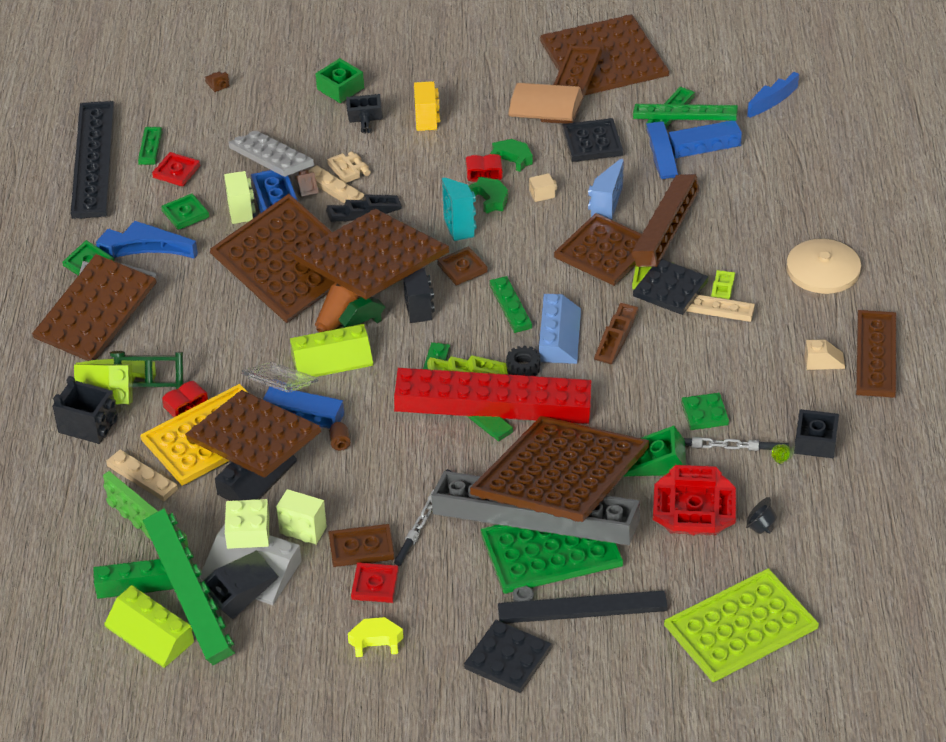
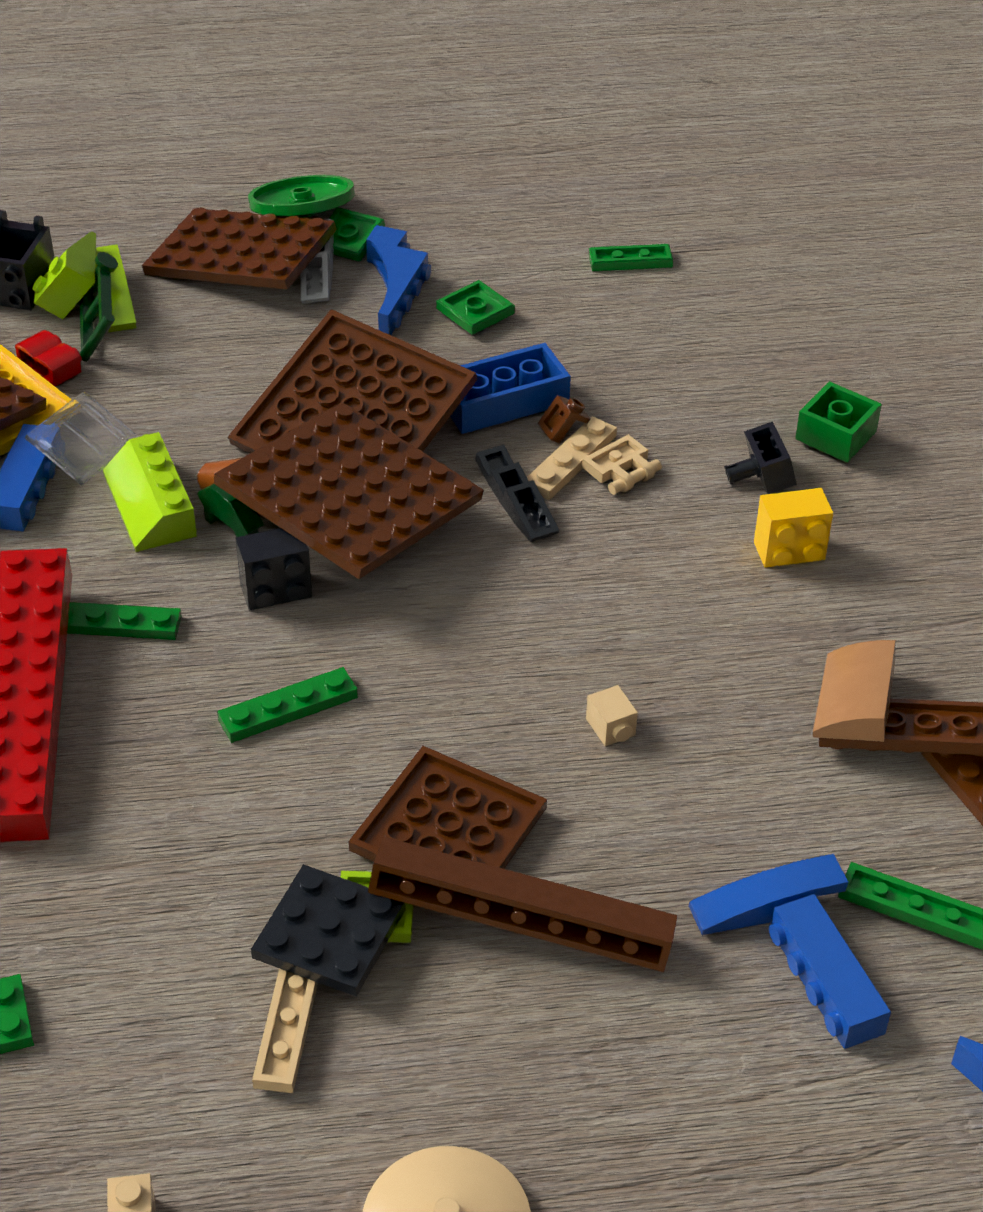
camera: 80 degrees right, 0 degrees up
(45, 276) = (301, 195): none -> green dish
(92, 160) = (580, 207): black plate -> none
(176, 169) = (573, 285): red plate -> none
(217, 81) = (807, 300): reddish brown bracket -> none
(239, 197) = (496, 333): yellowish green brick -> none
(271, 153) = (611, 363): light grey plate -> none
(458, 209) = (489, 584): teal slope -> none
(462, 265) = (379, 628): reddish brown plate -> none
(474, 364) = (105, 657): lime slope -> none
(483, 166) = (654, 630): red brick -> none
(493, 192) = (585, 654): green piece -> none
(514, 152) = (715, 670): green piece -> none
(523, 355) = (124, 745): black tyre -> none
(559, 330) = (208, 771): medium blue slope -> none
(592, 139) = (780, 783): black plate -> none
(606, 191) = (604, 806): medium blue slope -> none
(616, 333) = (195, 859): reddish brown slope -> none
(685, 112) = (894, 925): green tile -> none
(723, 284) = (351, 1032): lime slope -> none

